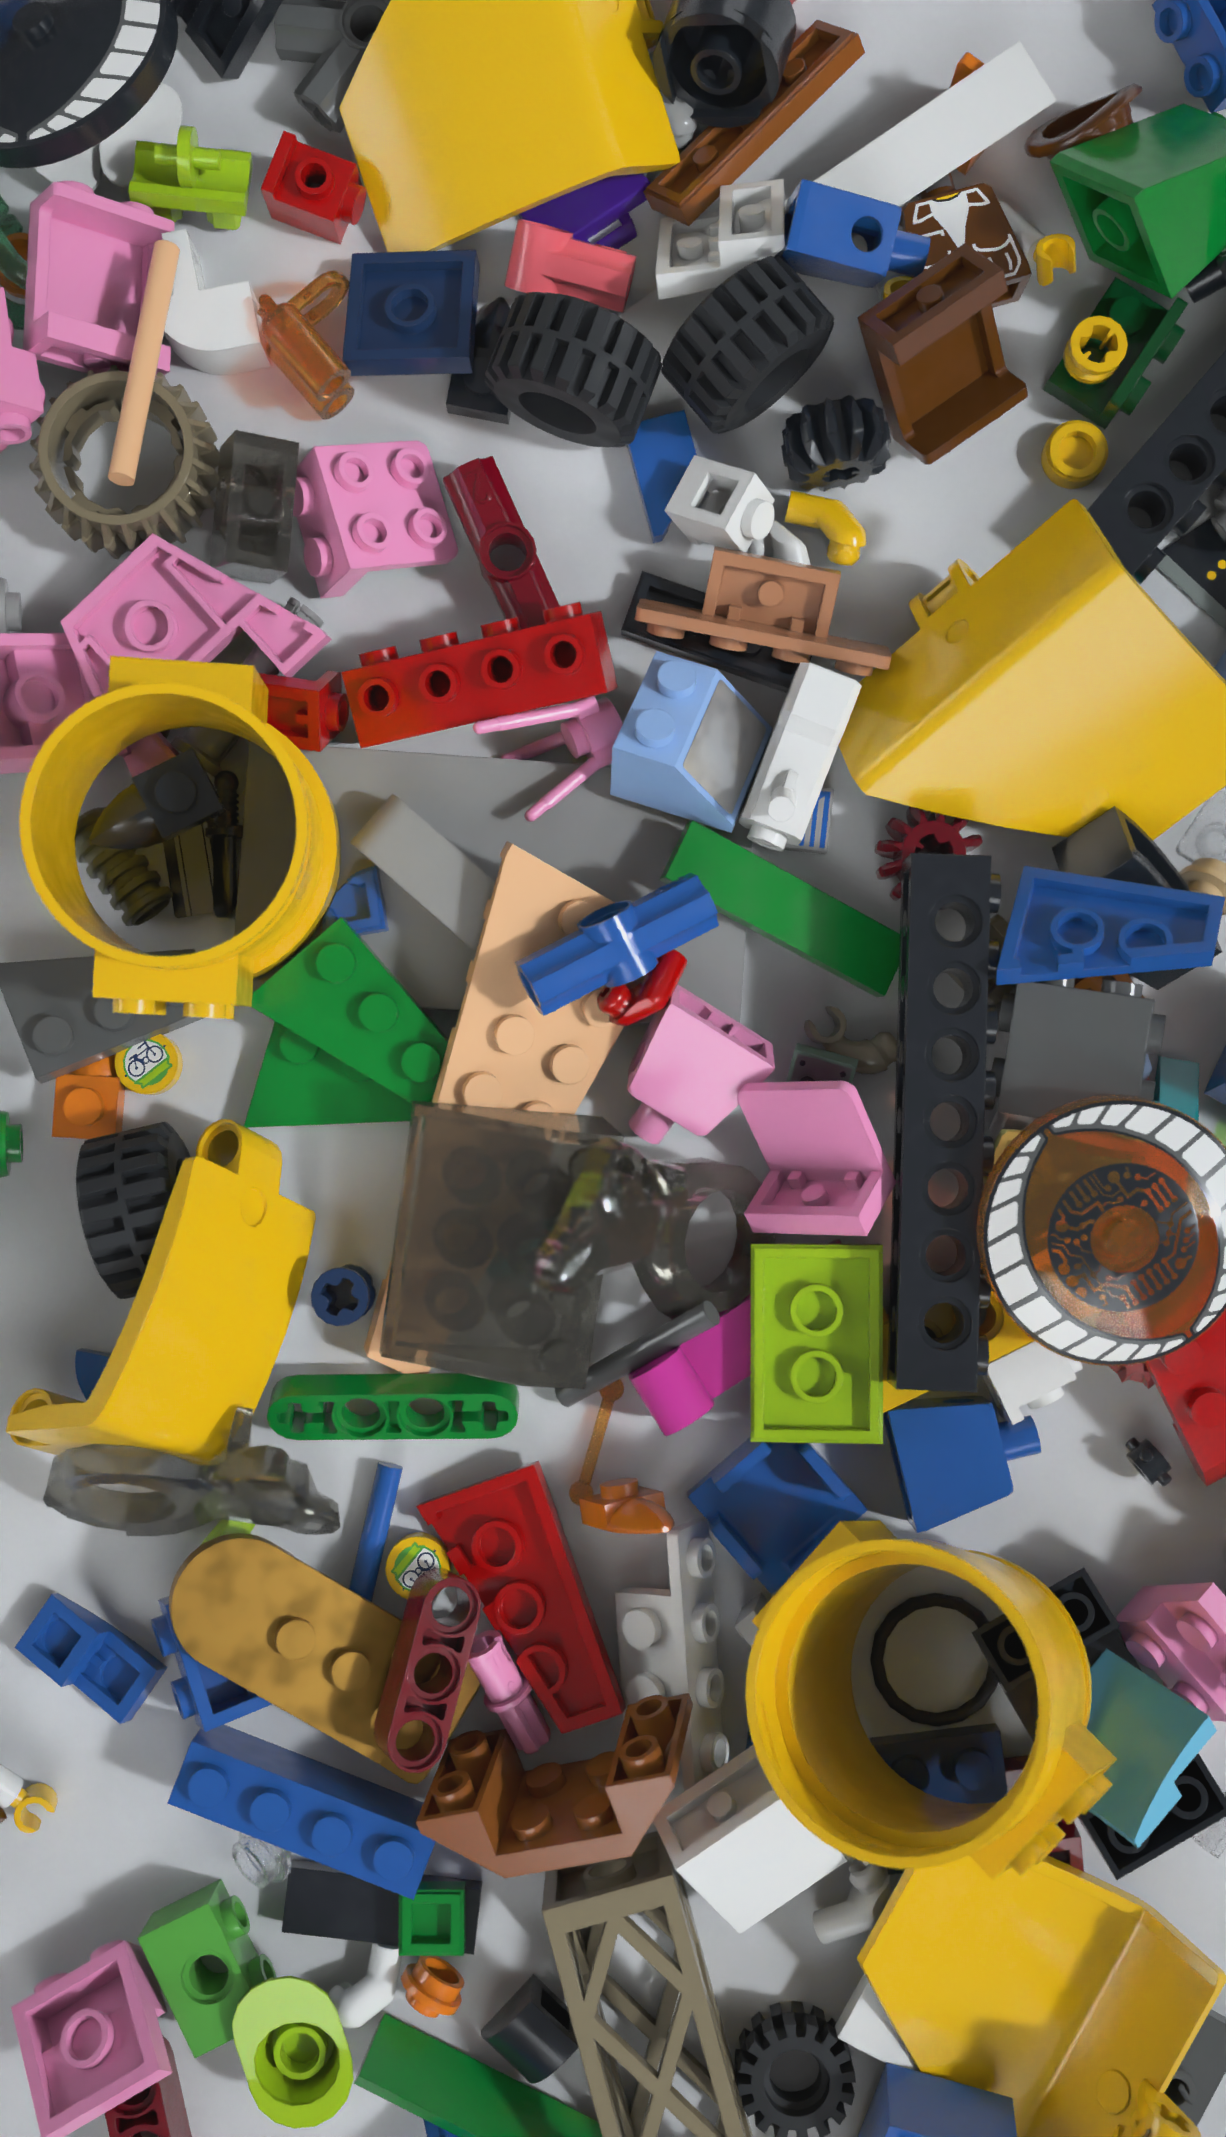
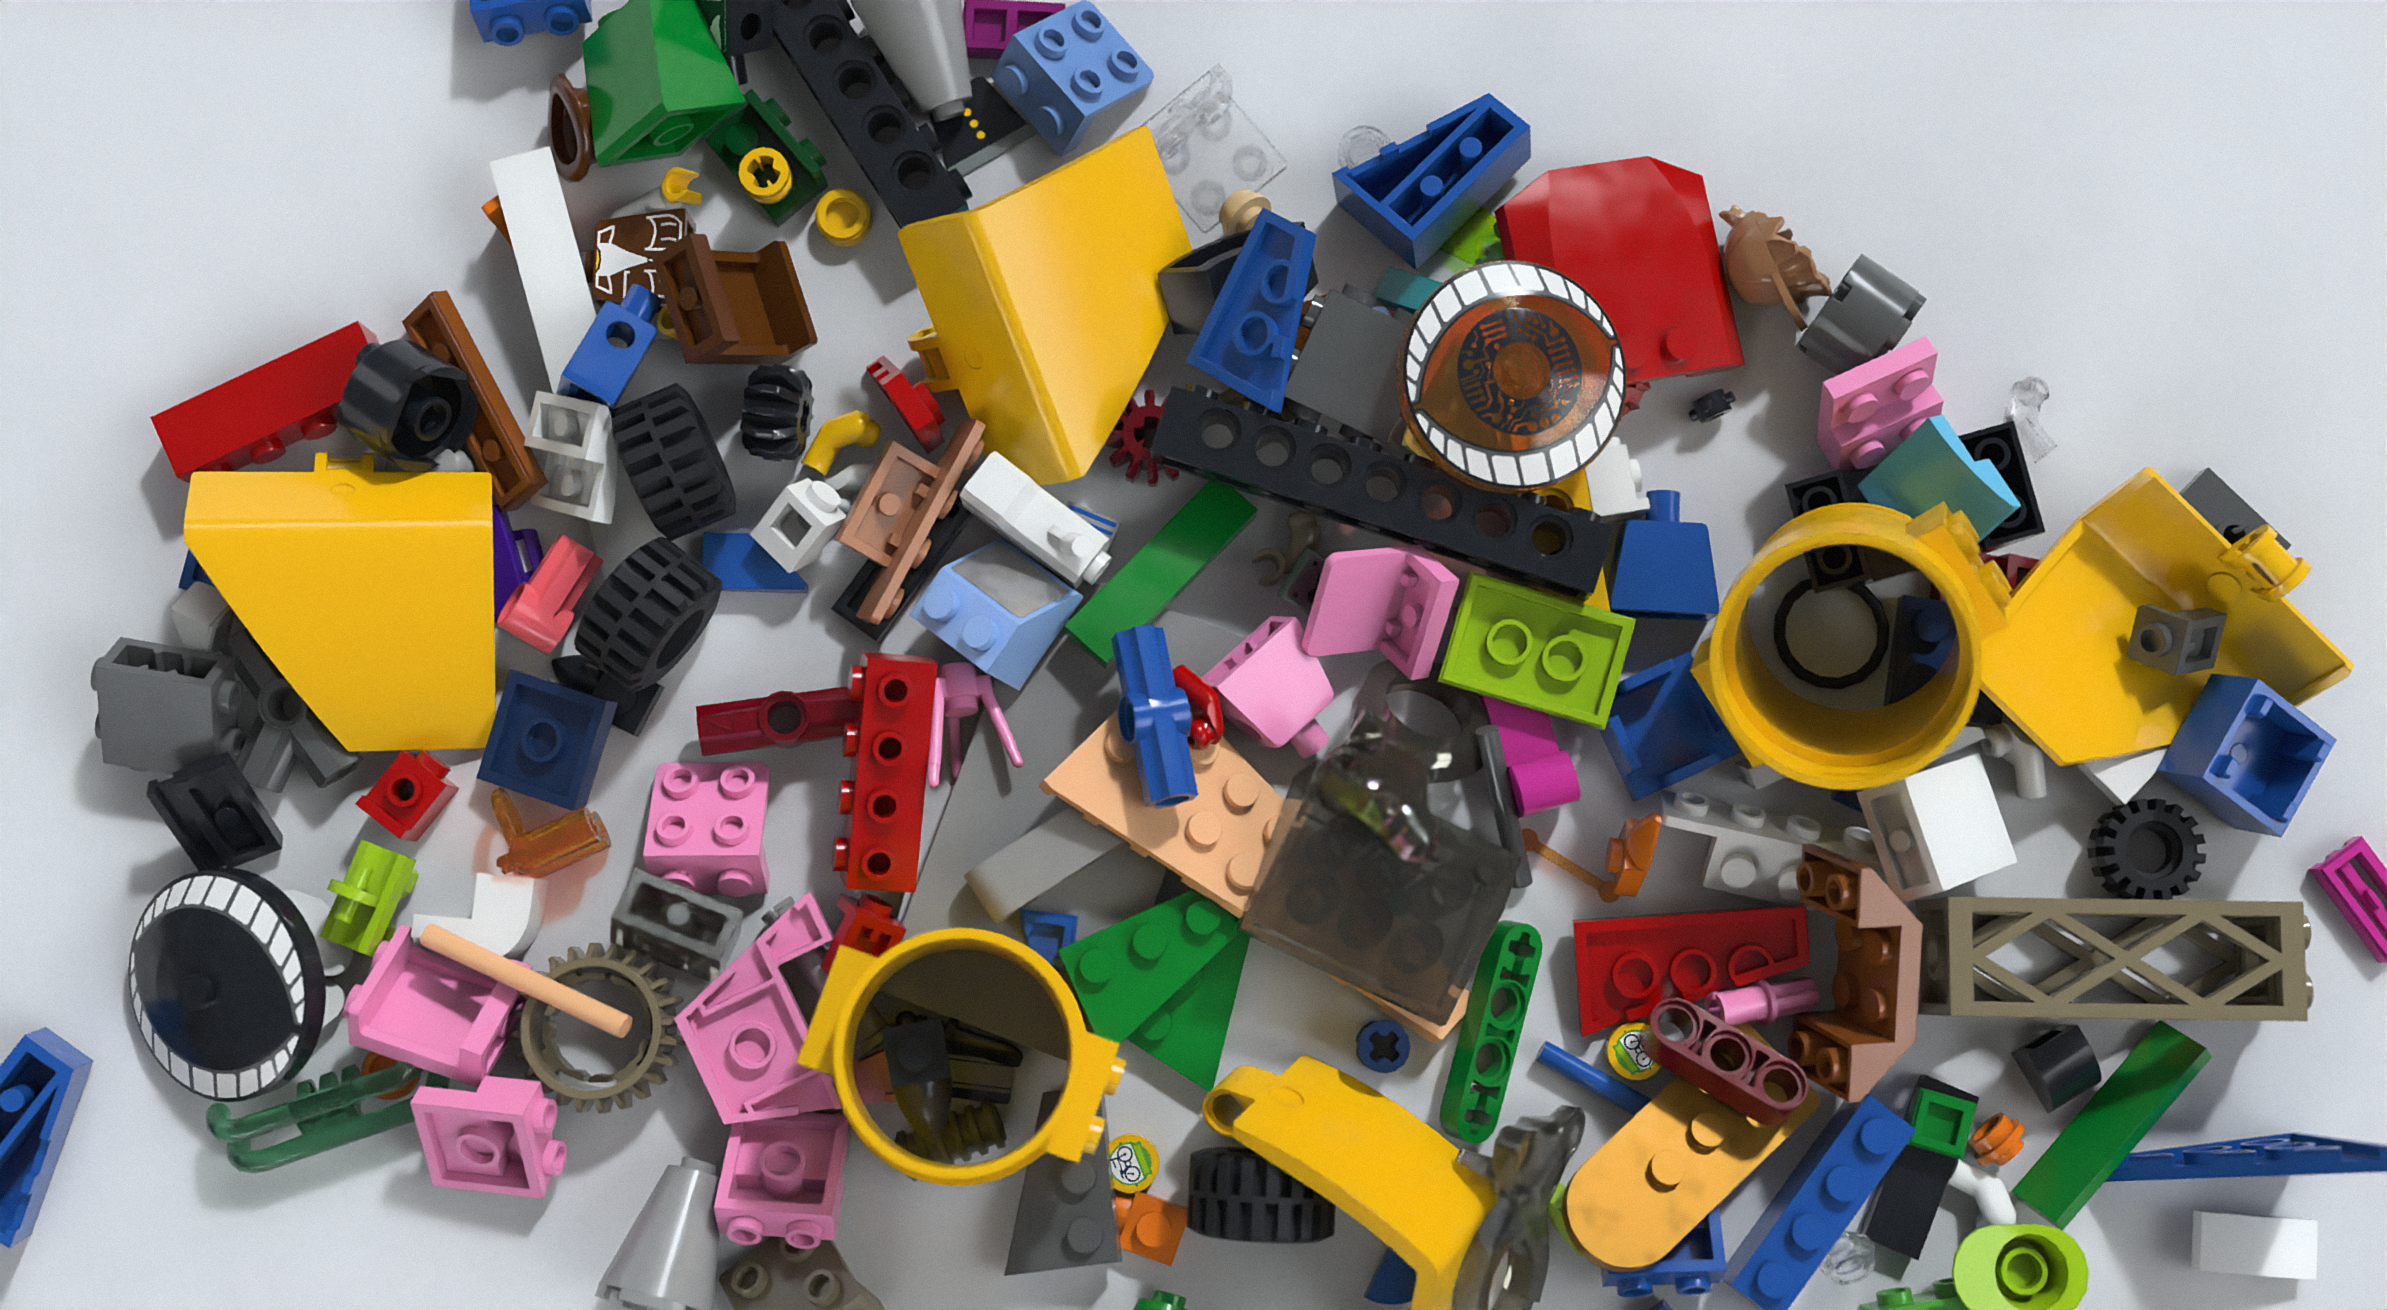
camera: 75 degrees left, 5 degrees down
(887, 584) = (912, 403): none -> red wing
(1036, 2050) = (2176, 641): none -> dark grey bracket

